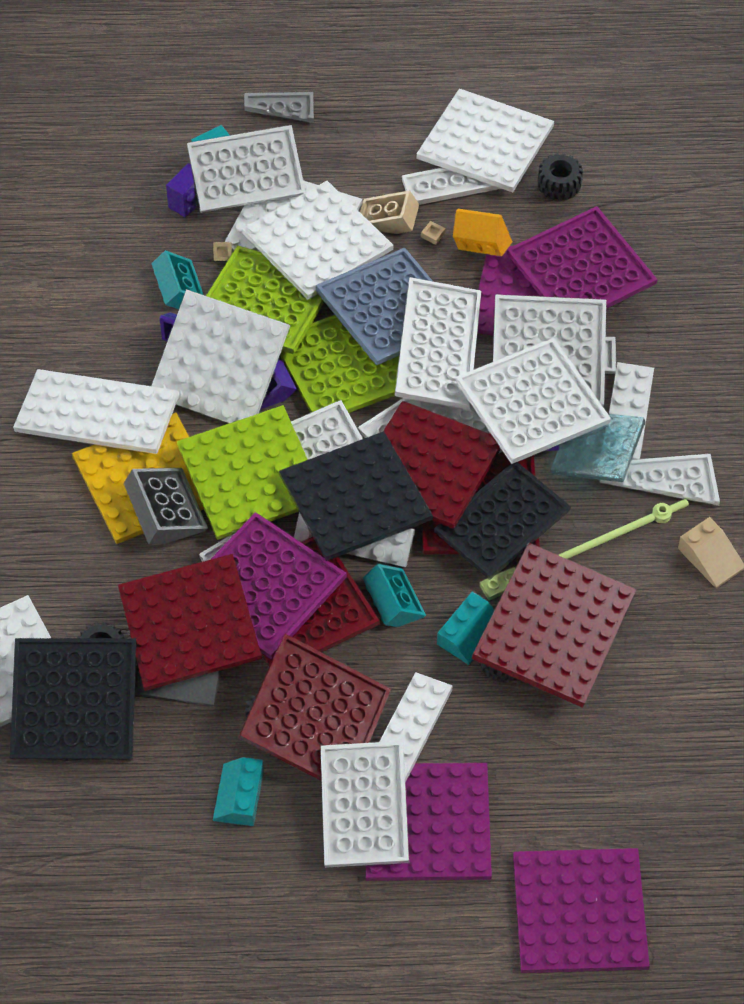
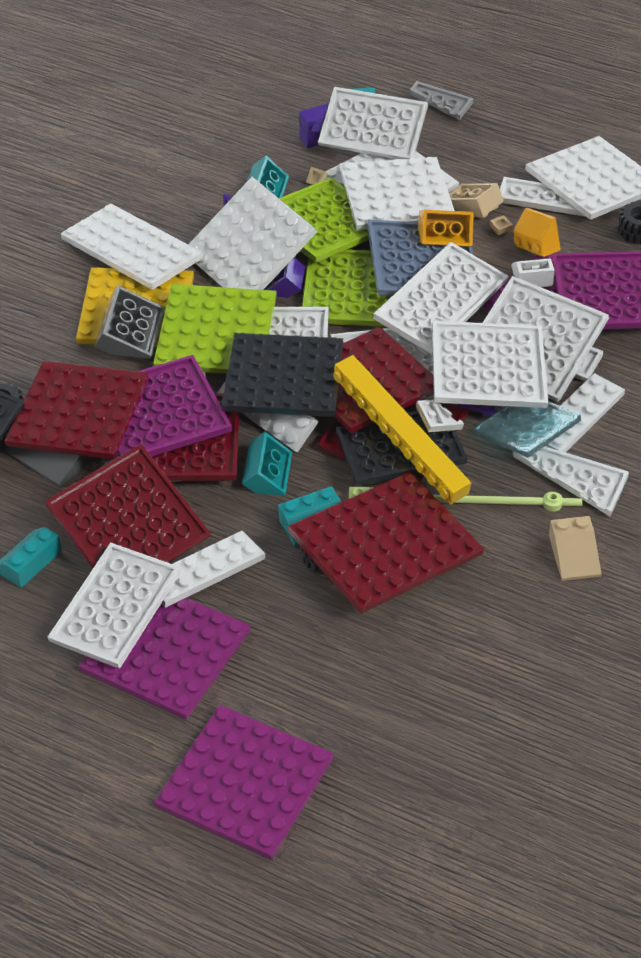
camera: 30 degrees right, 10 degrees down
(393, 262) = (444, 226): none -> light orange slope
(501, 505) = (402, 430): none -> yellow brick
(503, 277) = (535, 271): none -> white slope
(520, 476) = (436, 417): none -> white wing

